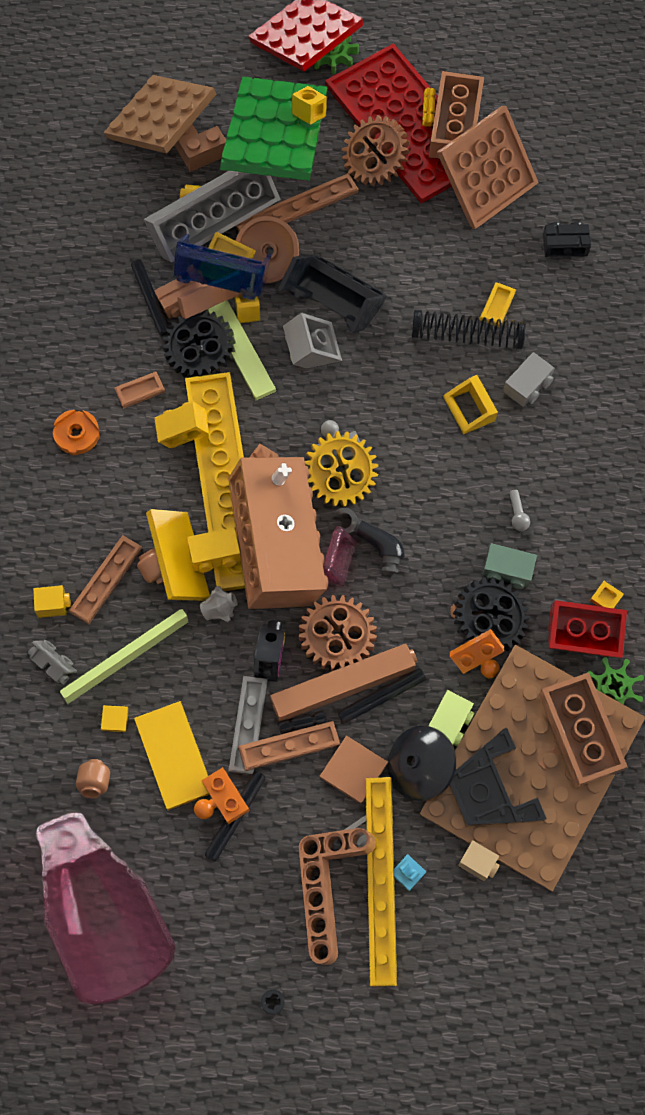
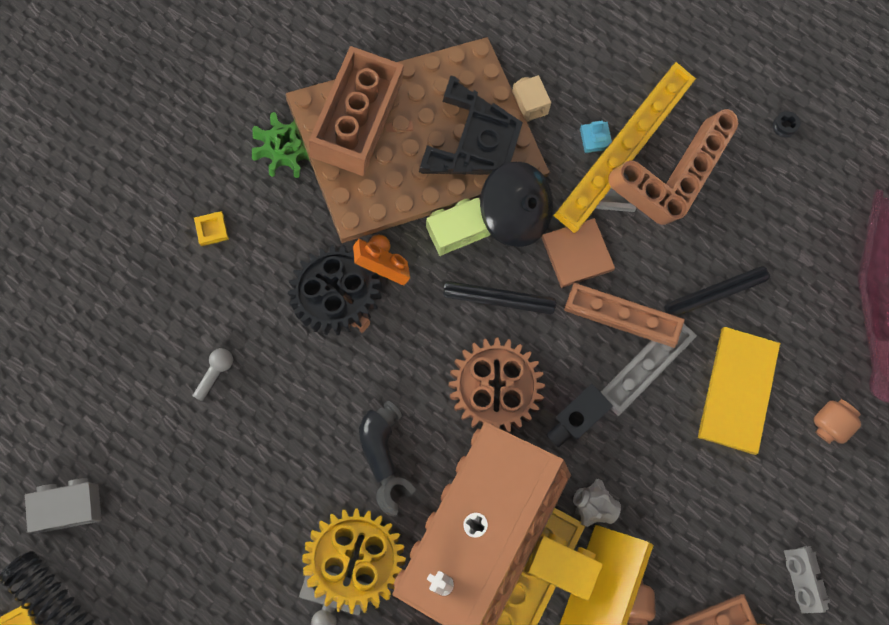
camera: 145 degrees left, 5 degrees up
(114, 718) = (776, 469): yellow tile -> none
(124, 656) = (730, 524): yellowish green tile -> none
(223, 795) = (721, 311): orange plate -> none
(302, 722) = (594, 328): black axle -> none
(339, 556) = (435, 461): clear pink tile -> none
(343, 682) = (530, 331): nougat brick -> none
(481, 399) = (134, 523): yellow tile -> none
(510, 565) = (274, 322): sand green brick -> none
(587, 629) = (262, 205): red slope -> none

